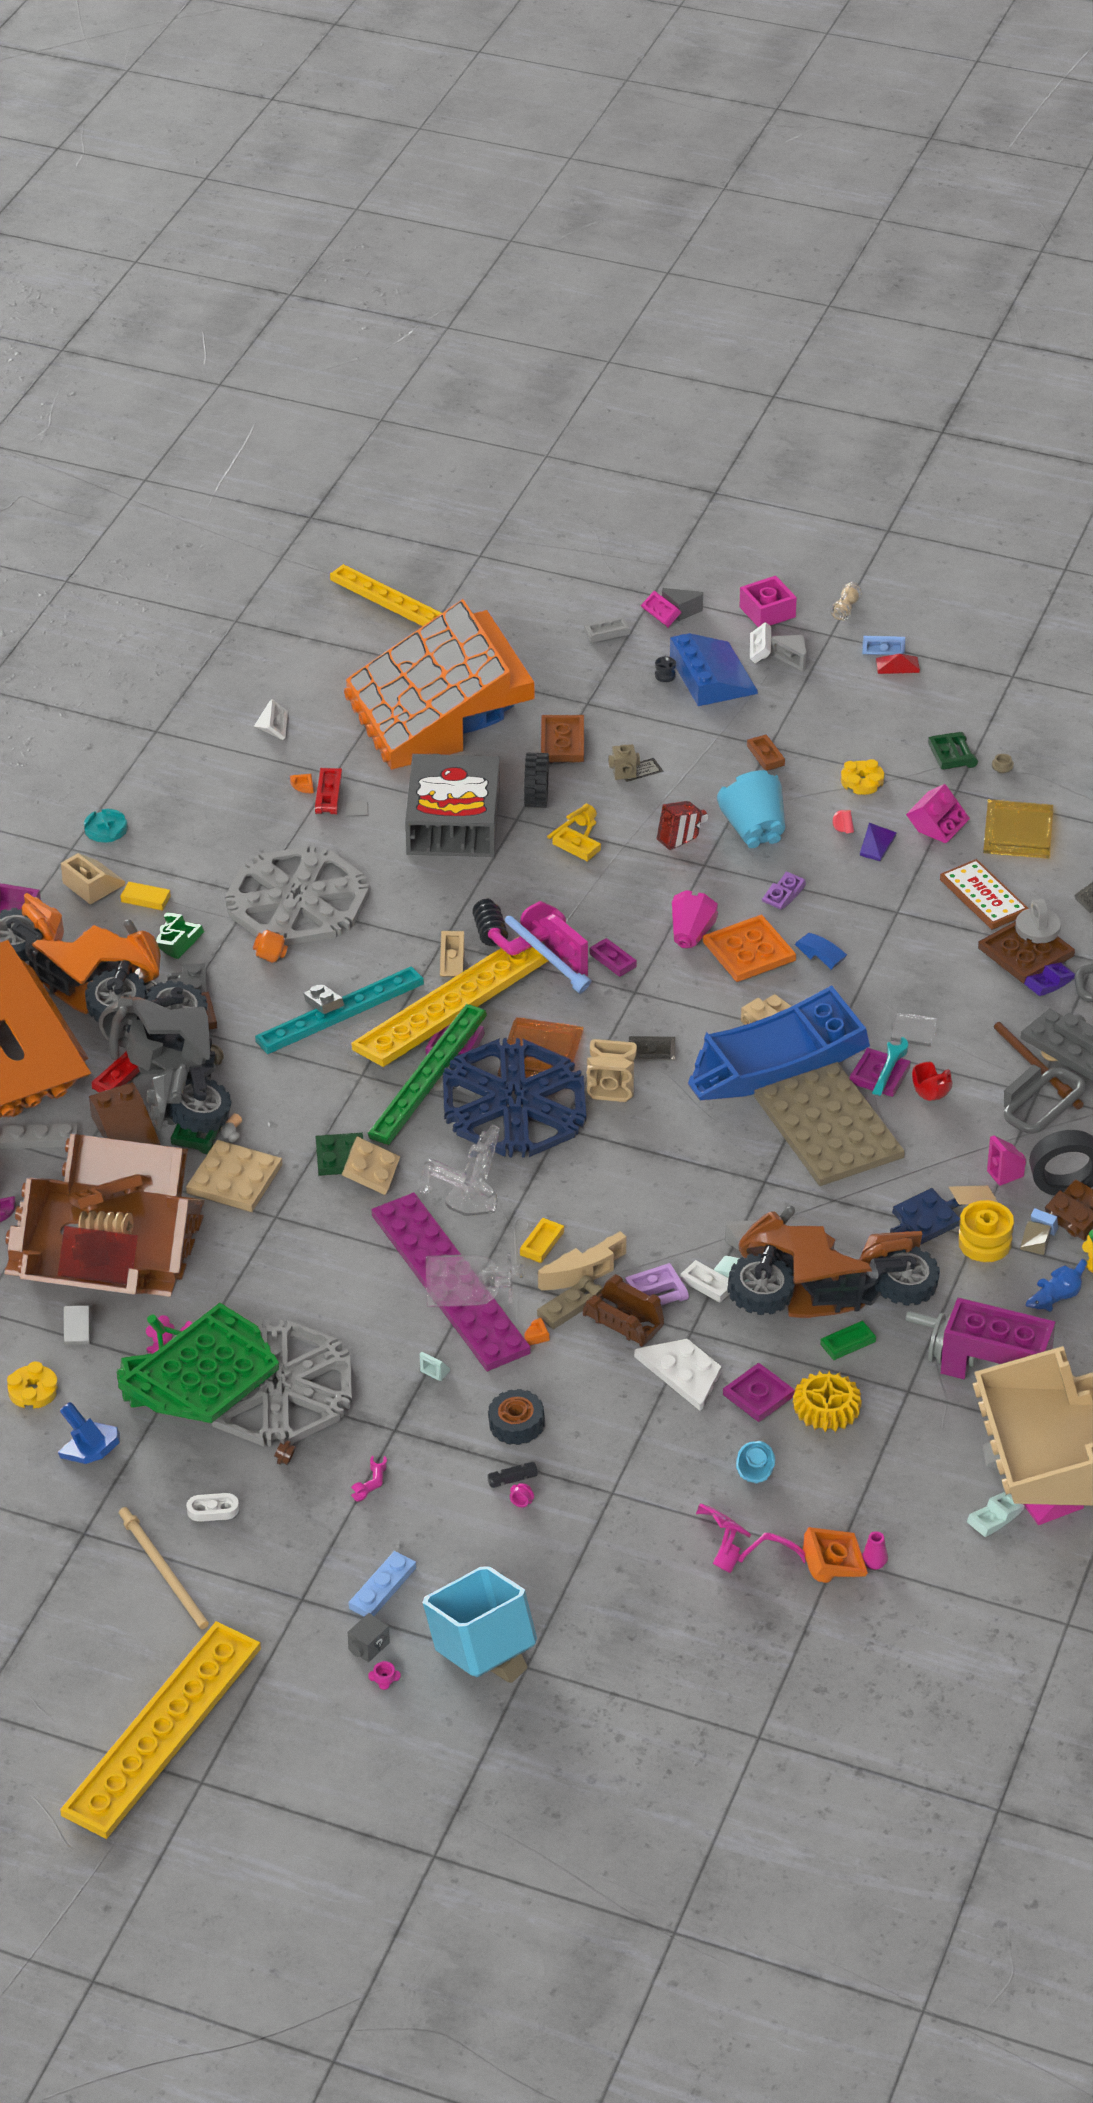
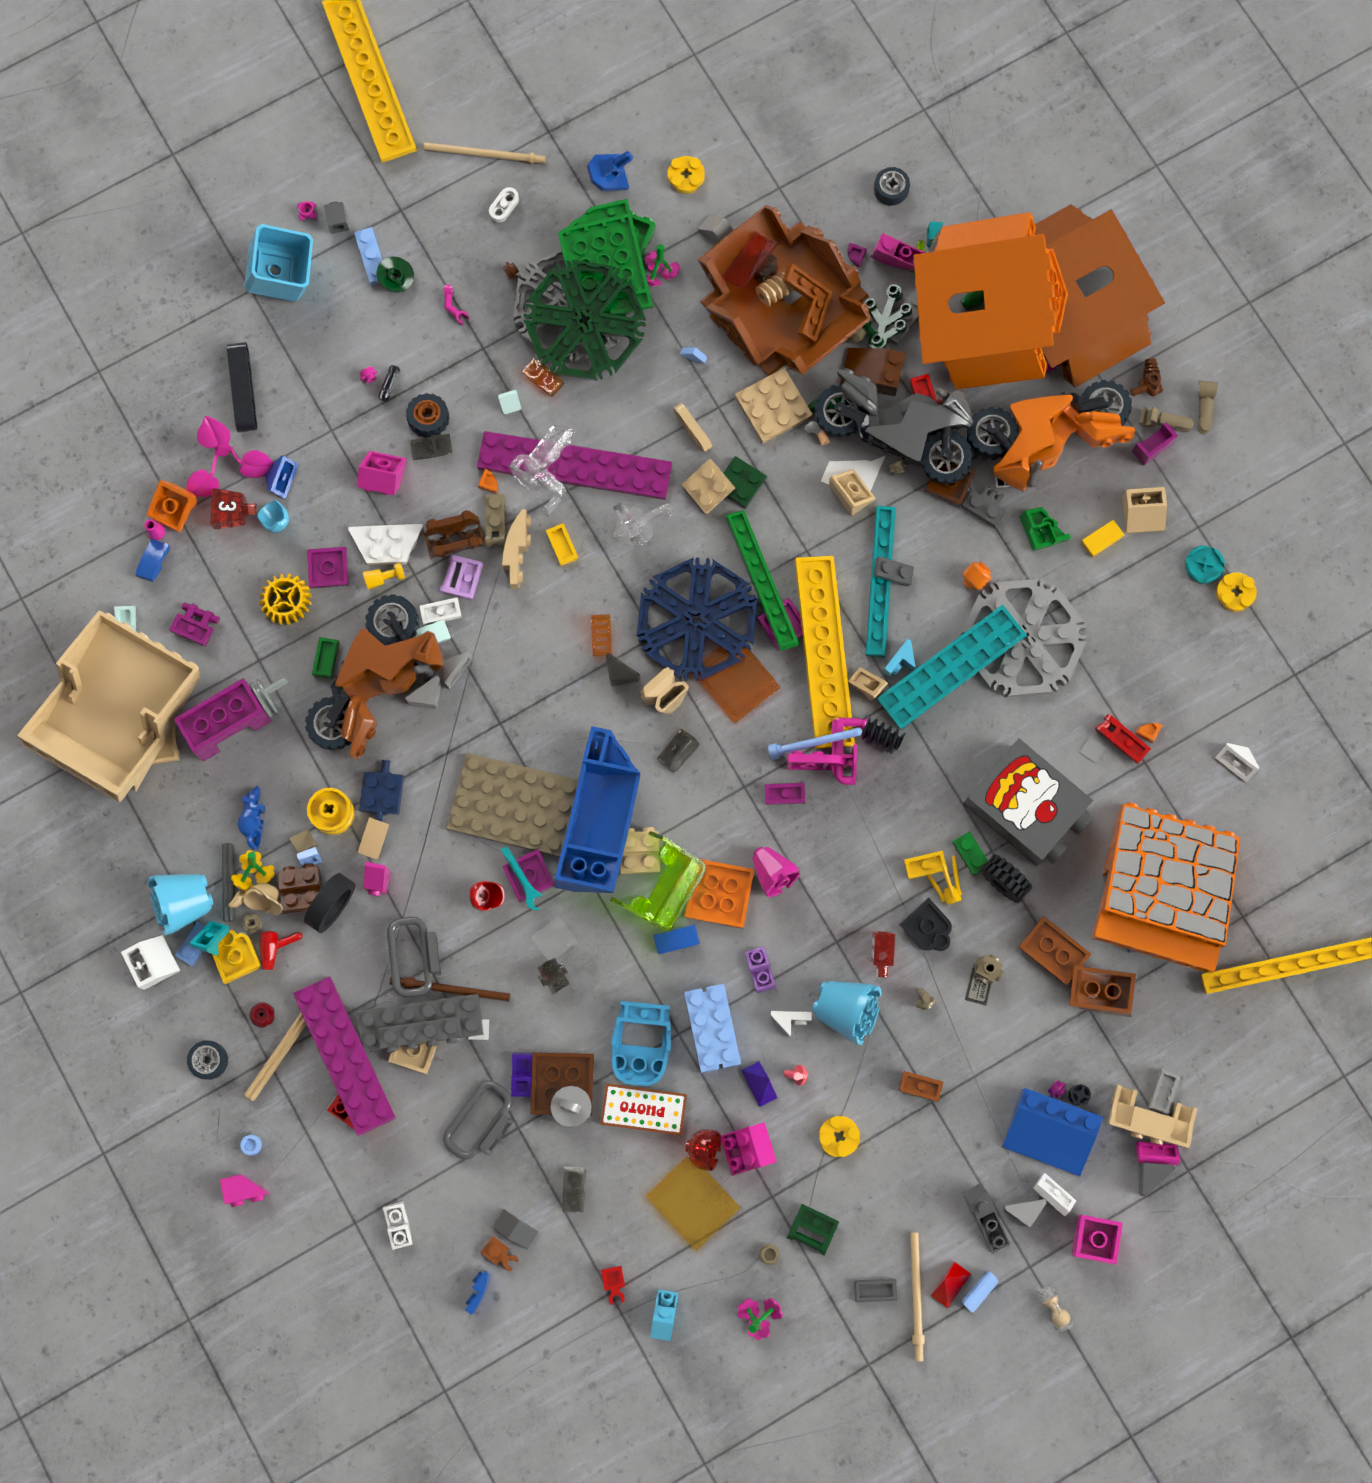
camera: 130 degrees right, 35 degrees up
(58, 1141) = (887, 319): none -> plant
(103, 794) = (1244, 584): none -> yellow plate
(239, 1259) = (693, 354): none -> light blue tile
(250, 1085) = (865, 469): none -> white sticker
(272, 1069) = (851, 491): none -> tan slope
(278, 1327) = (566, 317): none -> dark green plate
(319, 1214) = (692, 427): none -> tan beam
(373, 911) = (951, 667): none -> teal plate
(380, 1358) = (543, 377): none -> clear orange slope
(386, 1541) = (399, 268): none -> dark green dish
(399, 953) = (903, 656): none -> medium azure slope
(533, 827) = (970, 853): none -> green plate
(555, 1404) = (431, 447): none -> clear smoke slope
(564, 688) = (1103, 990): none -> dark orange slope
(592, 1166) = (597, 619): none -> clear orange slope
(615, 1412) = (381, 473): none -> dark pink slope
(626, 1121) = (619, 672): none -> clear smoke slope
(628, 816) = (928, 927): none -> black plate
(641, 617) = (1153, 1125): none -> tan bracket
(645, 1588) = (242, 387): none -> black beam
(676, 681) = (1057, 1090): none -> magenta plate
(693, 786) = (925, 1001): none -> dark tan plate
(710, 1494) = (280, 476): none -> blue slope
(727, 1347) = (375, 578): none -> yellow piece
(786, 1506) = (230, 509): none -> clear red torso
(787, 973) = (671, 890): none -> clear neon green windscreen
(802, 849) = (784, 1019): none -> white slope
(822, 668) = (986, 1217): none -> dark grey slope
(868, 885) = (712, 1028): none -> light blue piece
(910, 1530) = (151, 560): none -> blue slope
(938, 996) = (553, 975): none -> clear smoke brick
(939, 1456) = (191, 629): none -> magenta plate
(946, 909) = (636, 1063): none -> dark azure slope
(954, 698) = (875, 1290): none -> dark grey tile
(958, 659) = (917, 1339): none -> tan bar
(970, 834) = (703, 1149): none -> clear red cylinder
(1062, 738) = (758, 1326): none -> dark pink plant

